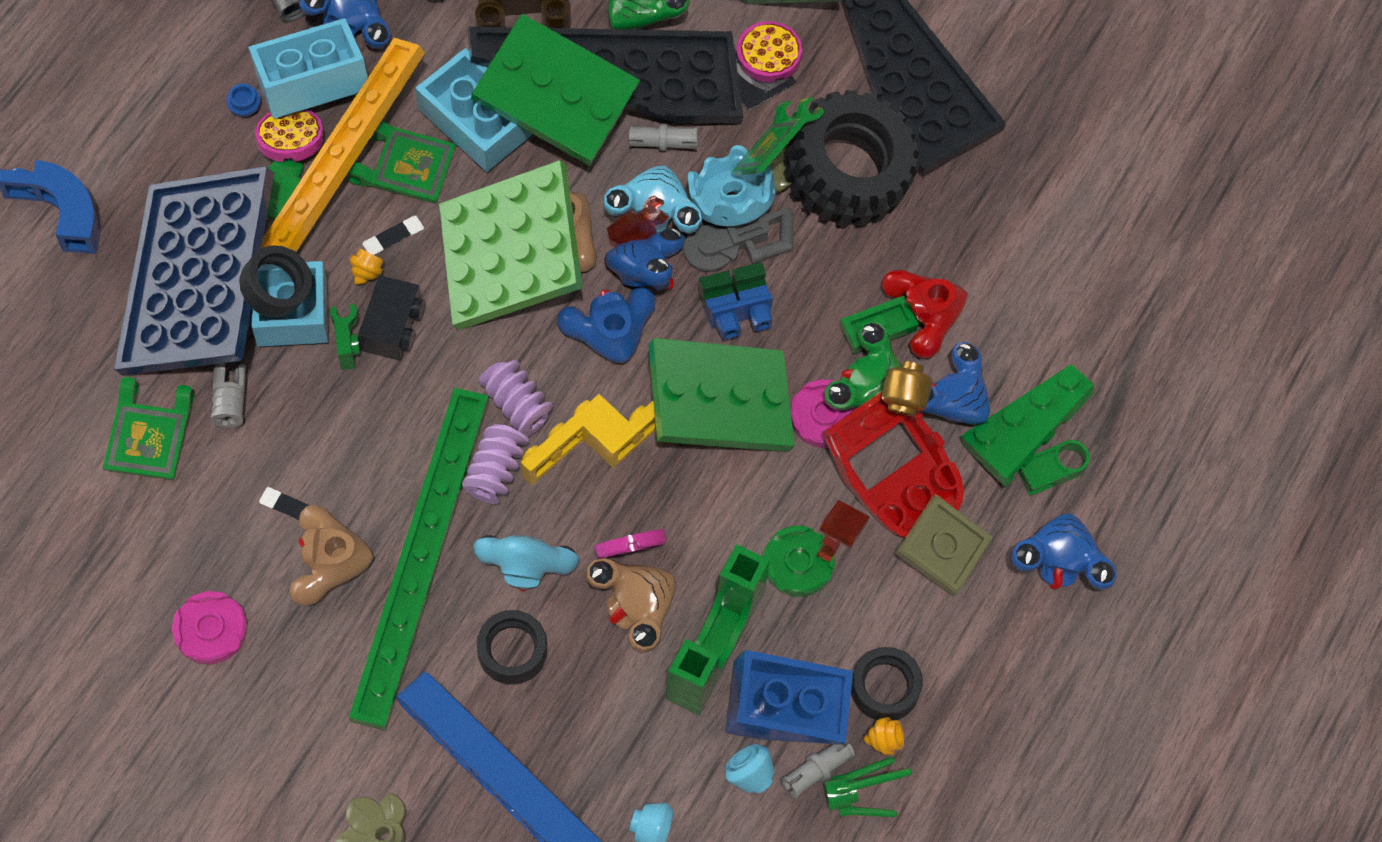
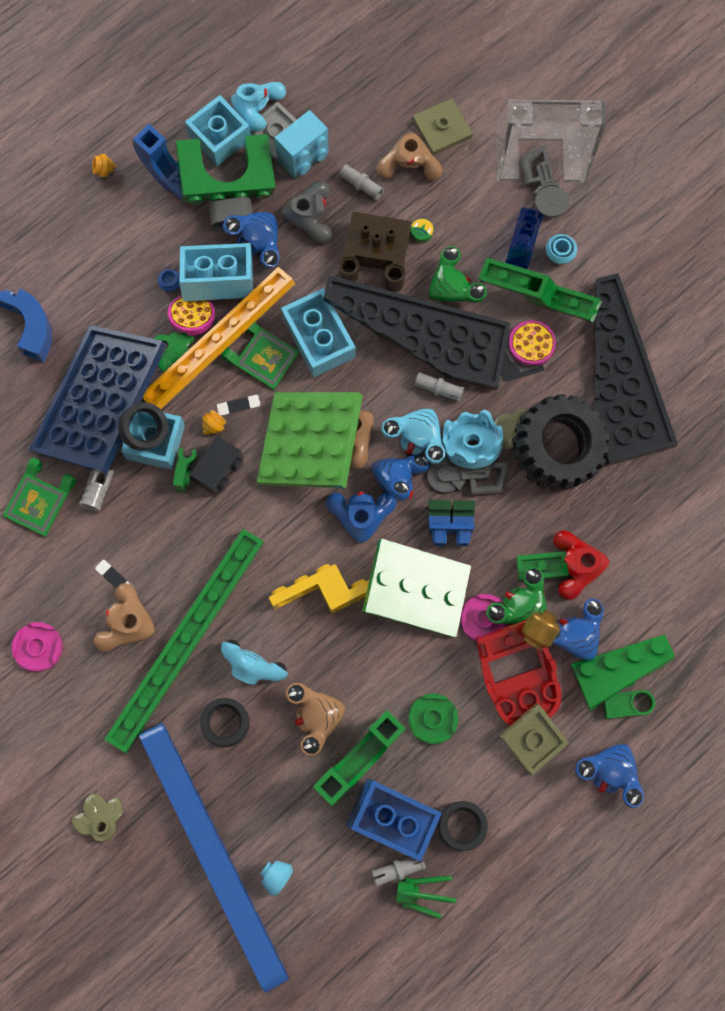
camera: 20 degrees right, 10 degrees up
(492, 461) = (253, 590): lavender piece -> none
(515, 397) = (281, 547): lavender piece -> none
(555, 89) = (373, 336): green plate -> none
(631, 543) = (324, 676): dark pink tile -> none
(638, 225) = (398, 449): clear red plate -> none
(751, 769) = (352, 857): medium azure cone -> none
(776, 137) = (511, 416): green flag -> none
(841, 525) = (468, 705): clear red plate -> none
(886, 736) = (450, 862): light orange plate -> none

